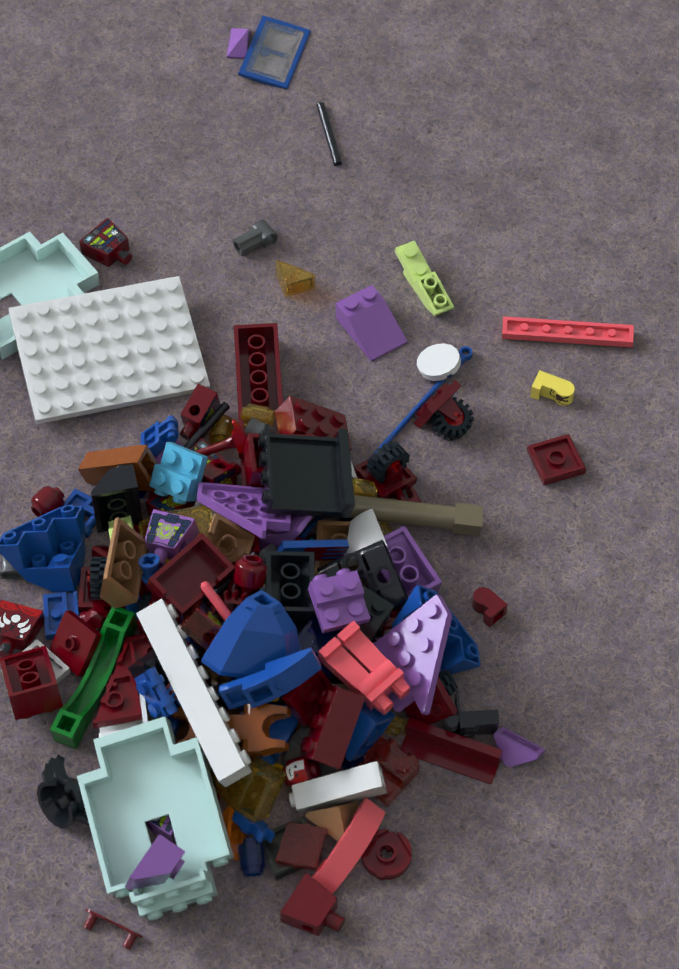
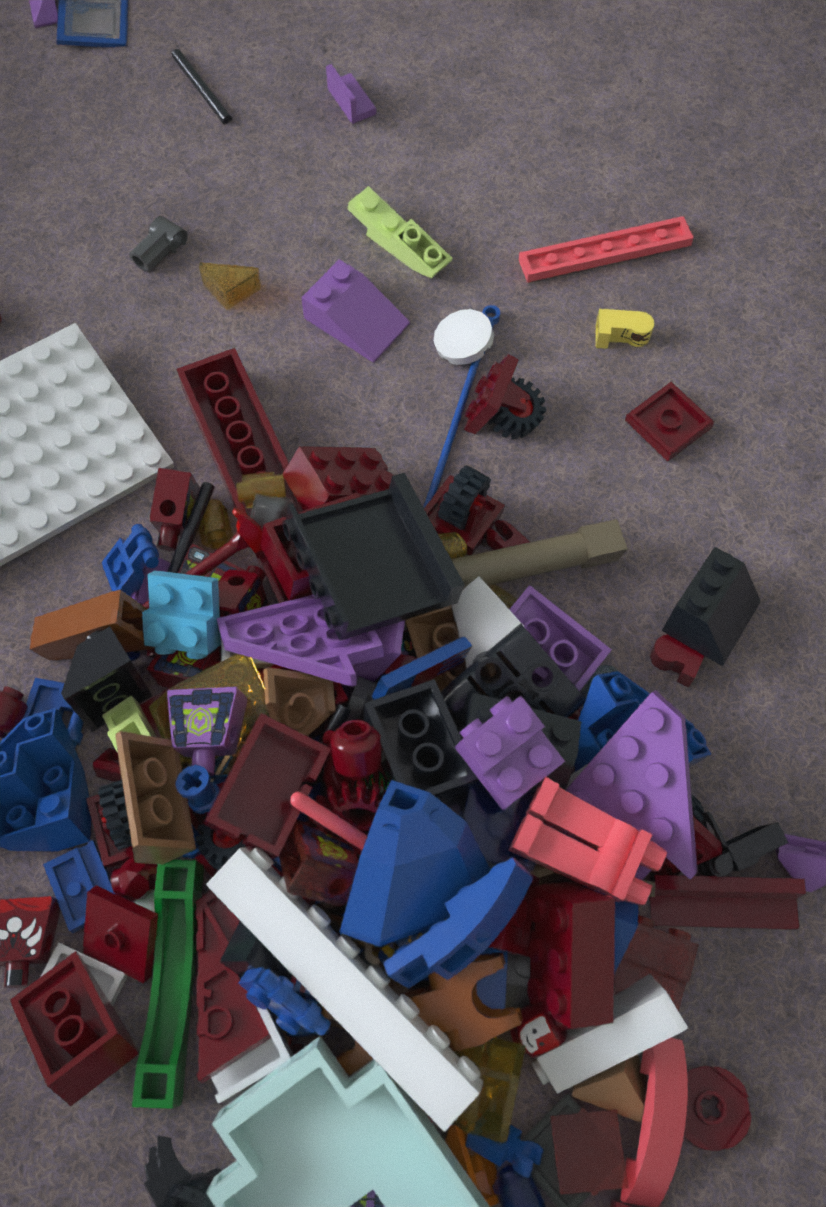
camera: 20 degrees left, 10 degrees up
(432, 171) = (349, 95): none -> medium lavender panel
(524, 579) = (714, 607): none -> black slope

